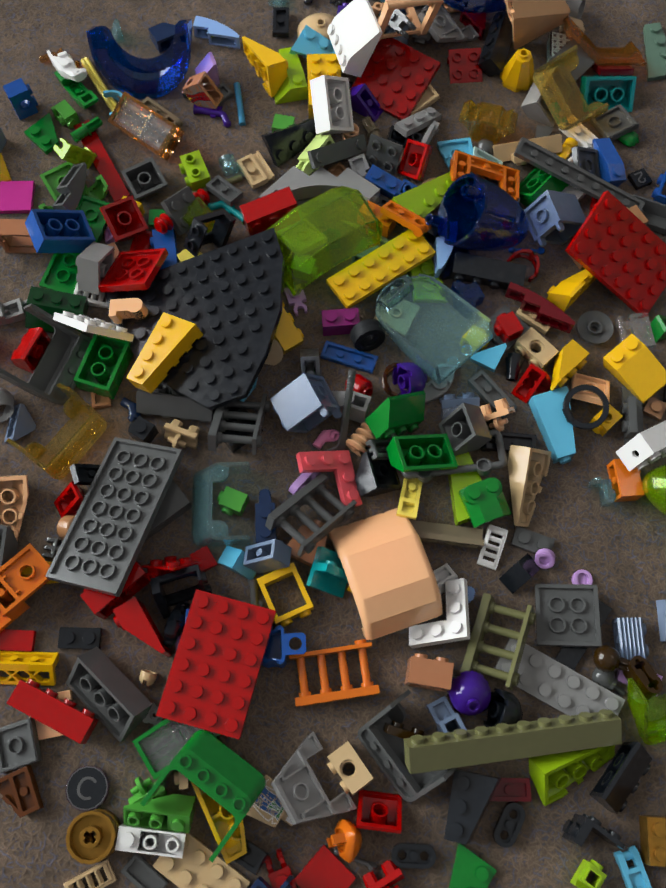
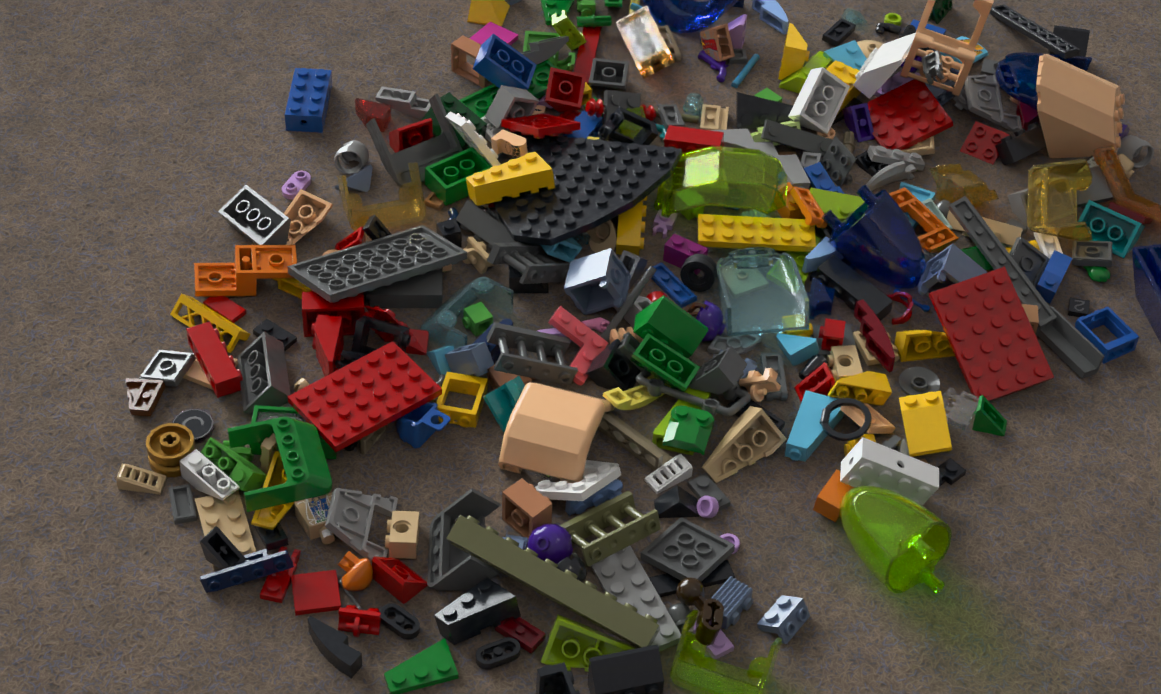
camera: 35 degrees right, 25 degrees down
(194, 169) = (659, 91): lime brick -> none
(347, 691) = (441, 486): orange fence -> none
(415, 159) = (870, 175): red slope -> none
(518, 71) = (1033, 156): yellow cone -> none
(606, 493) = (810, 492): clear light blue bracket -> none

